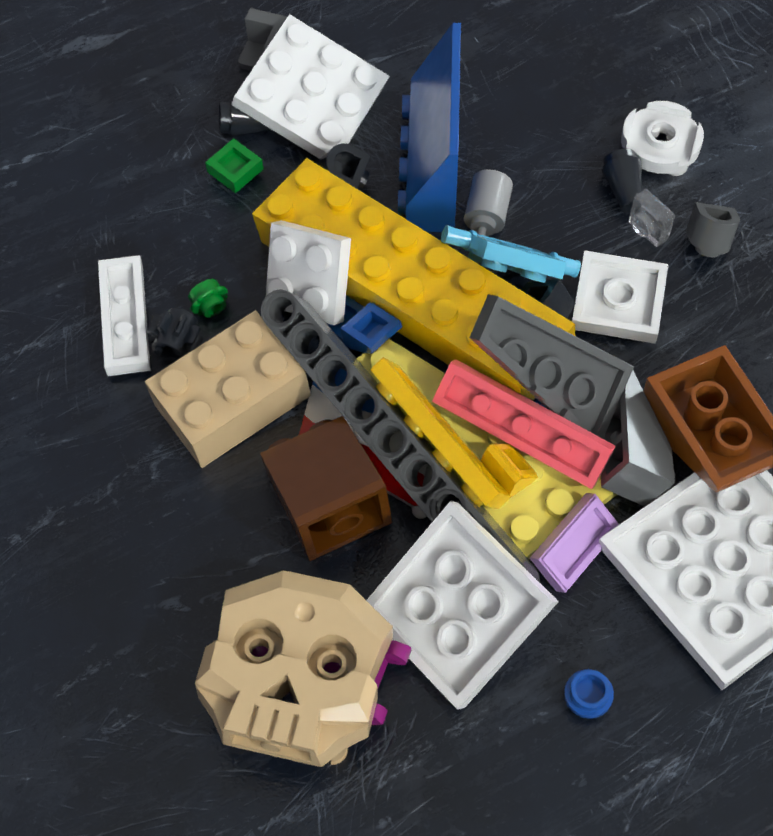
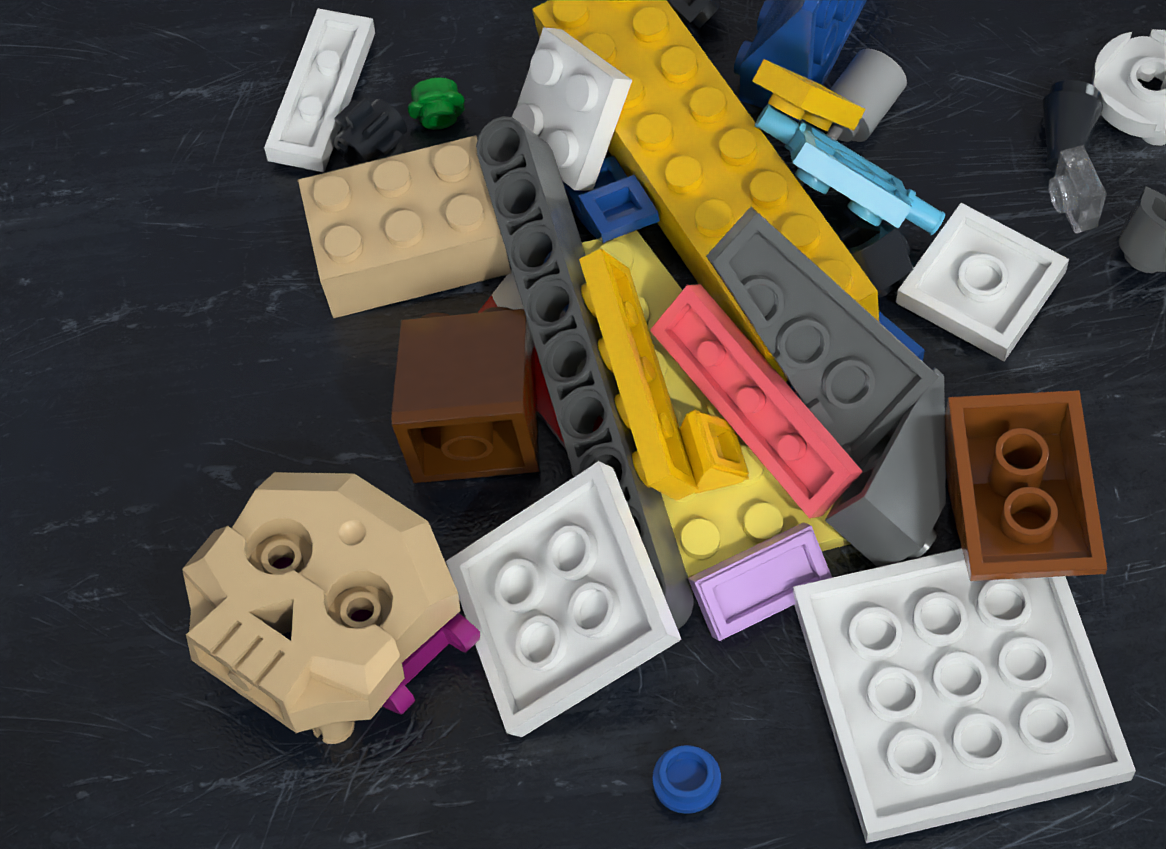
camera: 25 degrees right, 0 degrees up
(466, 213) = (806, 98): none -> yellow plate

